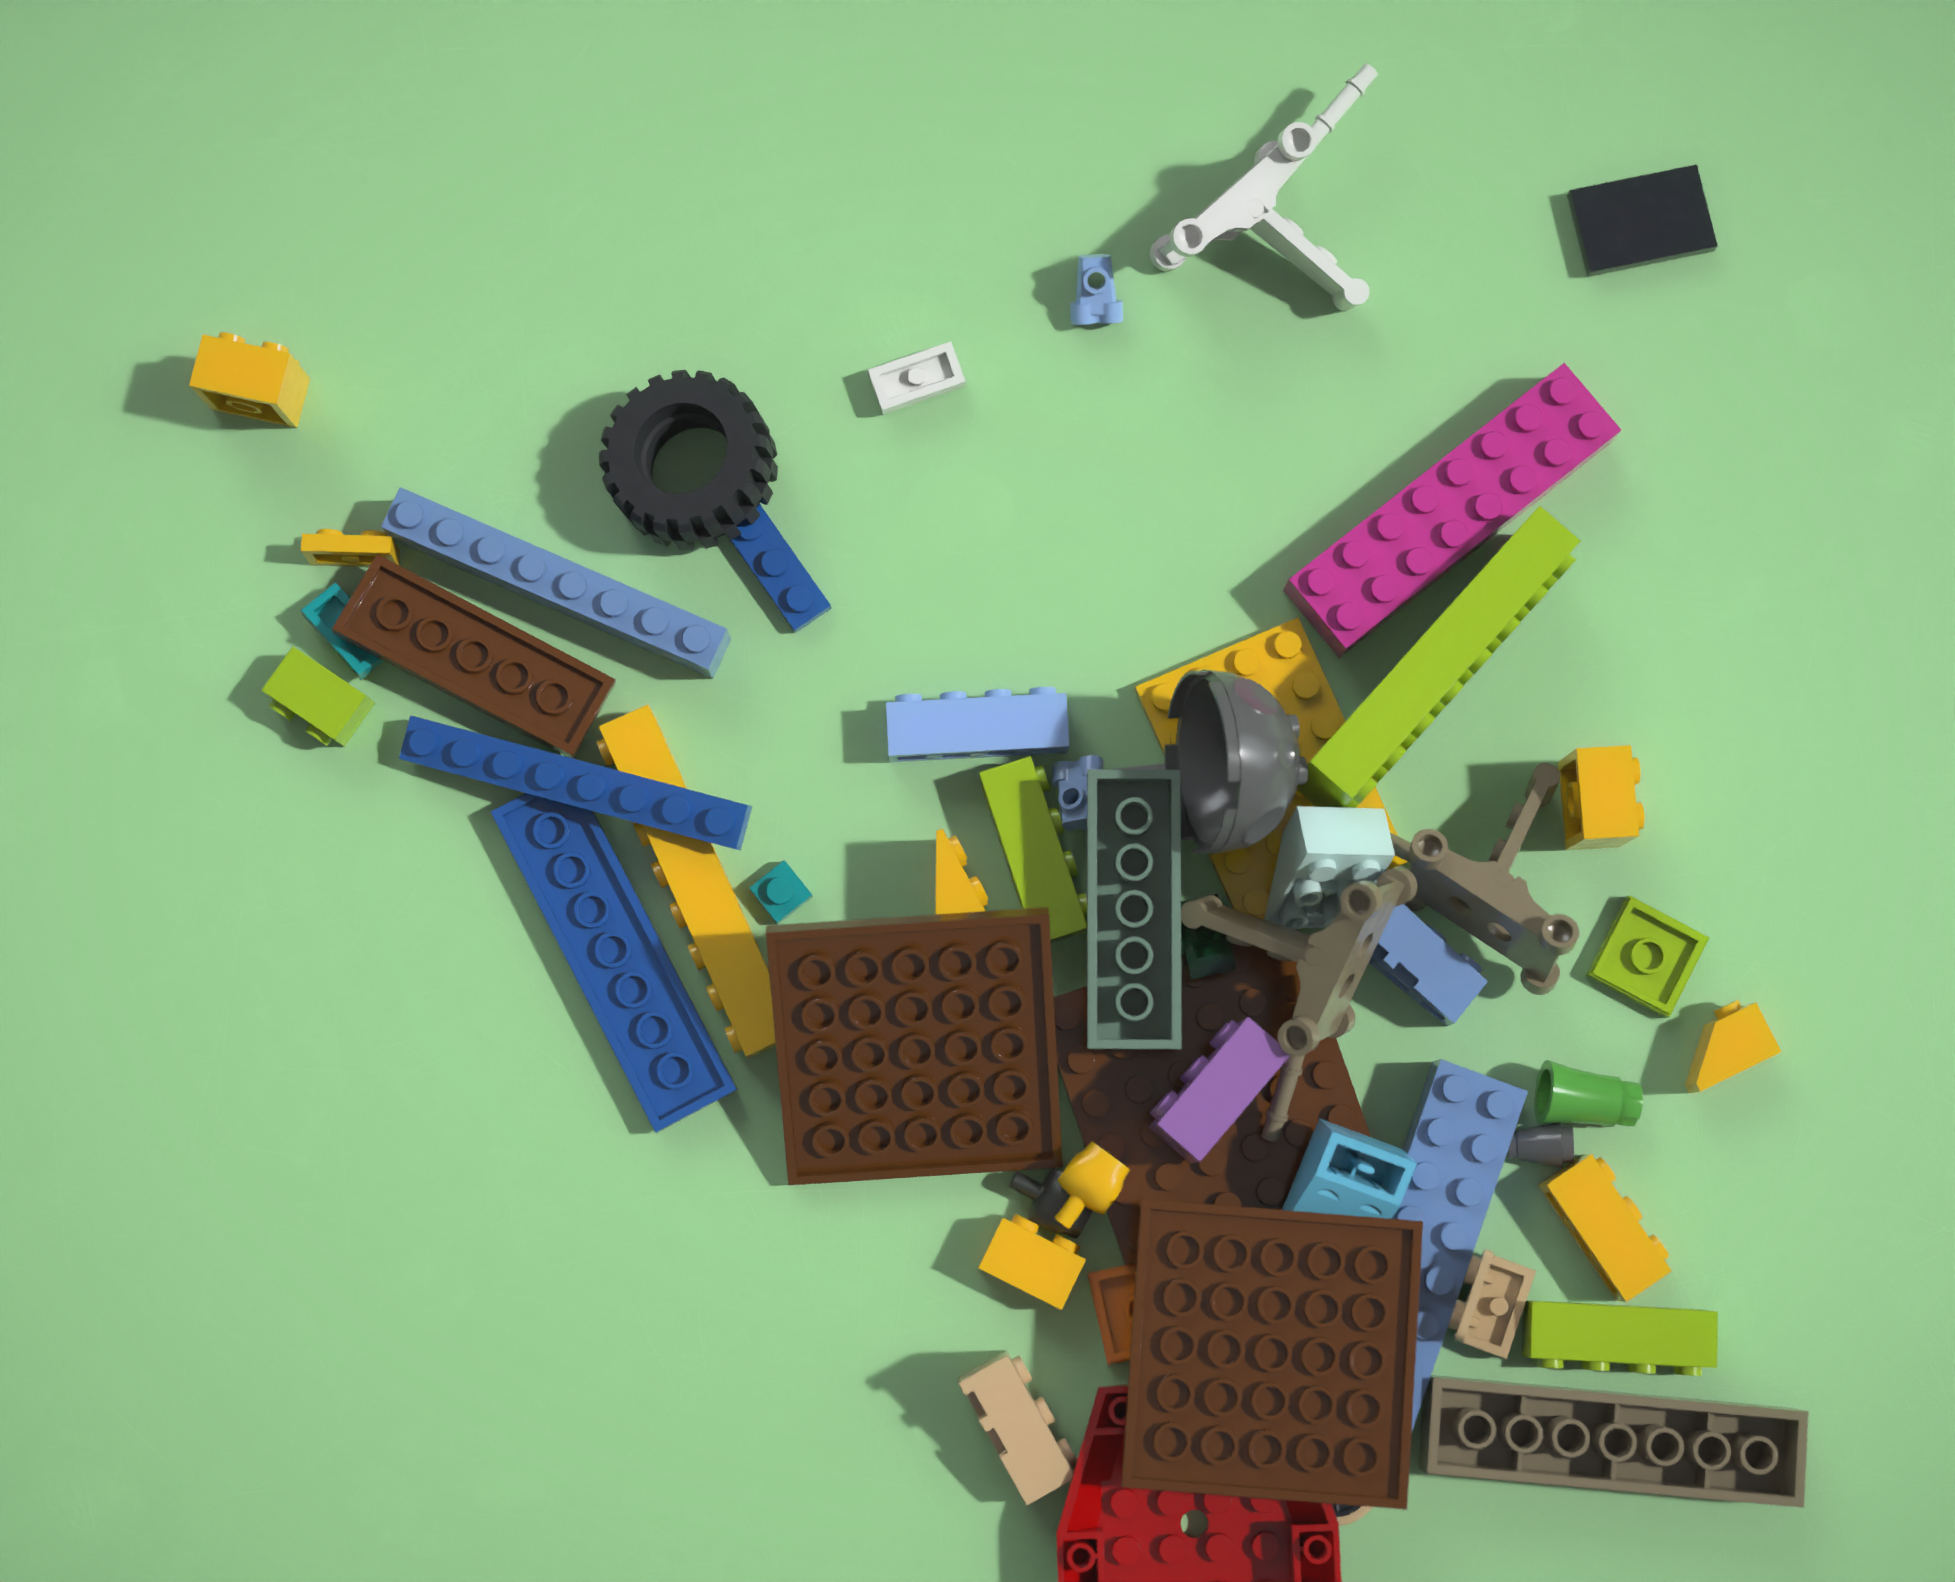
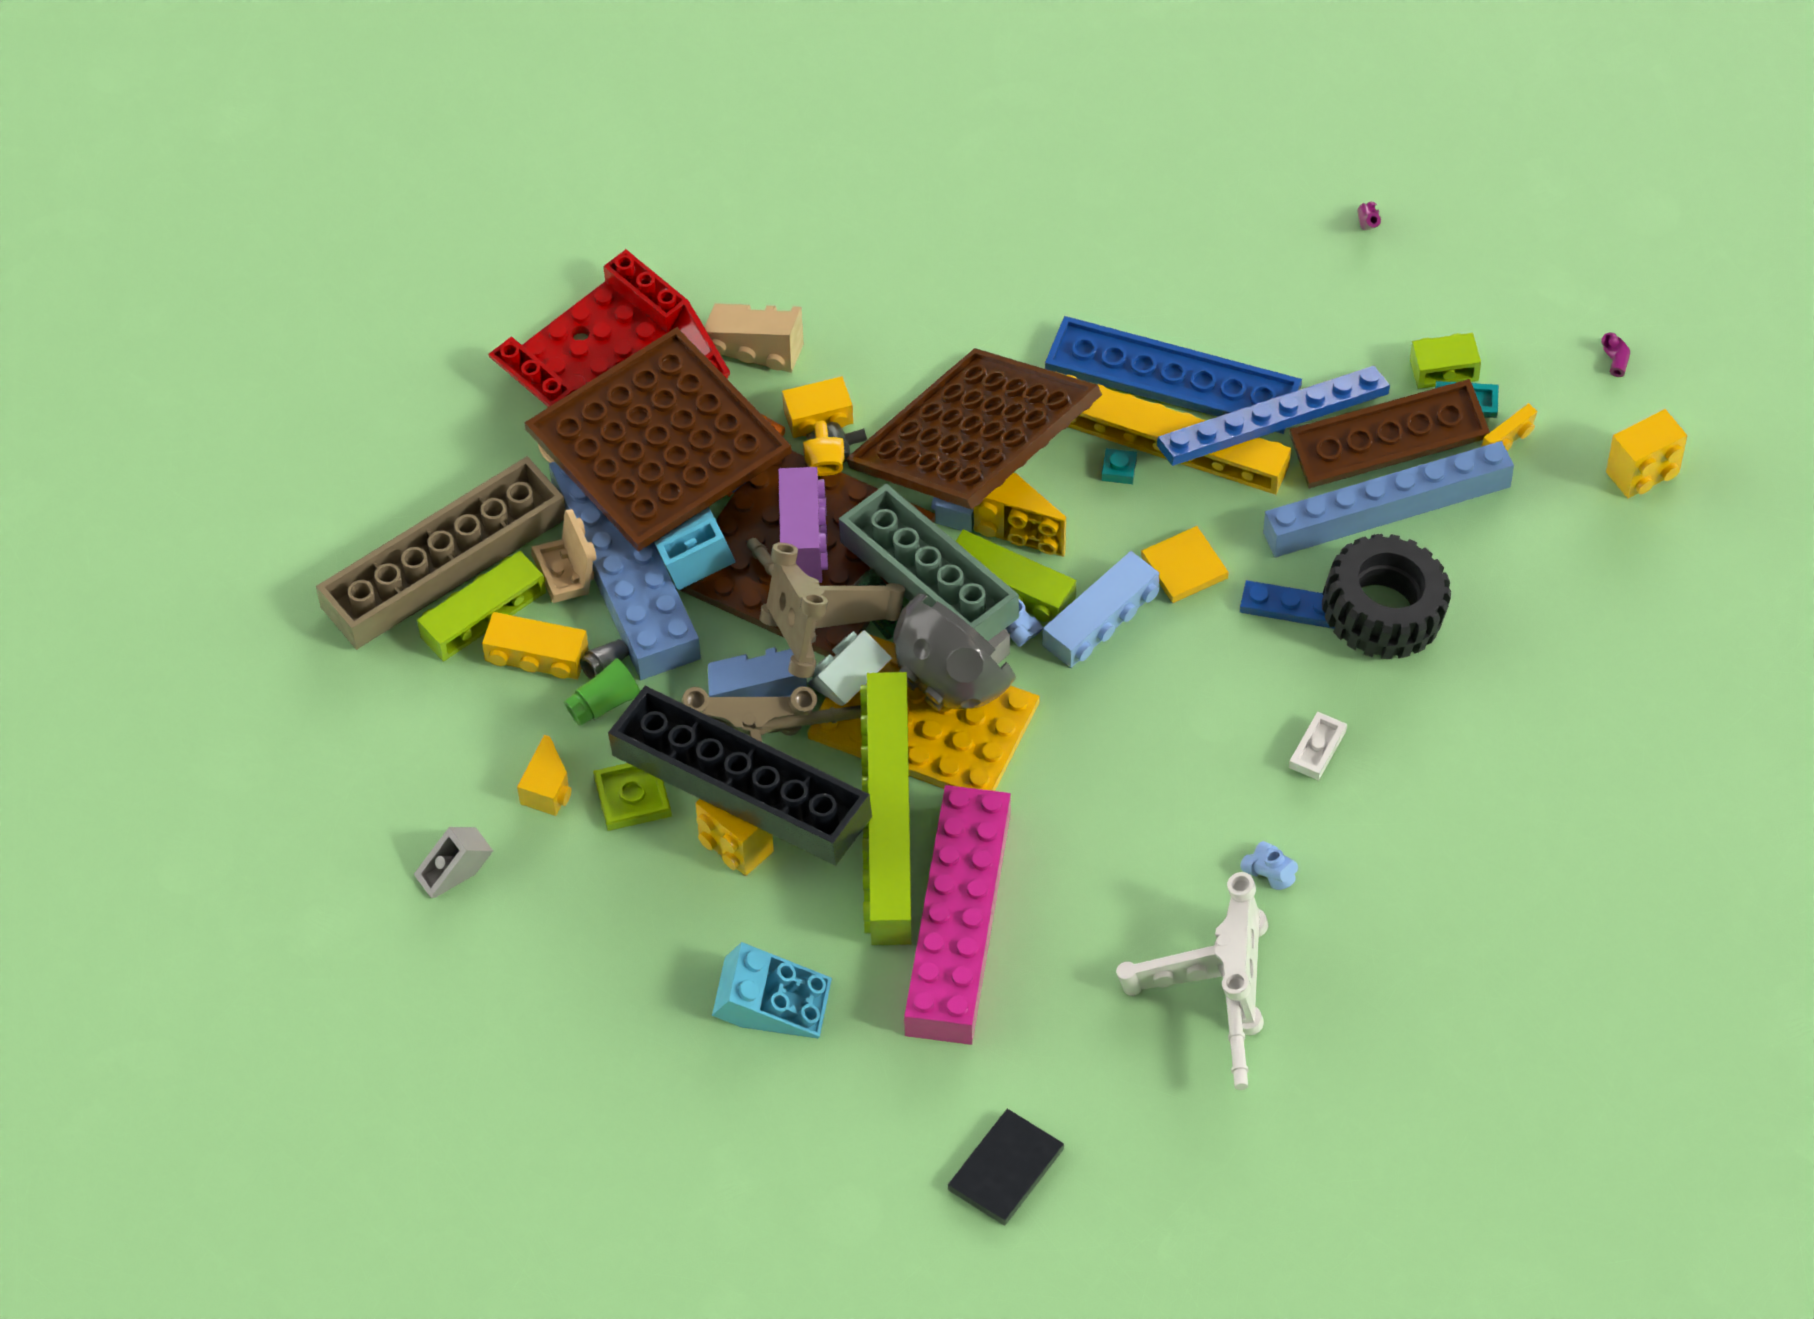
camera: 140 degrees right, 25 degrees down
(130, 544) = (1618, 352): none -> magenta arm
(204, 956) = (1368, 216): none -> magenta arm
(834, 709) = (1185, 564): none -> yellow tile
(1588, 803) = (740, 775): none -> black brick
(1712, 592) = (771, 993): none -> medium azure slope
(1905, 1033) = (453, 860): none -> light grey slope

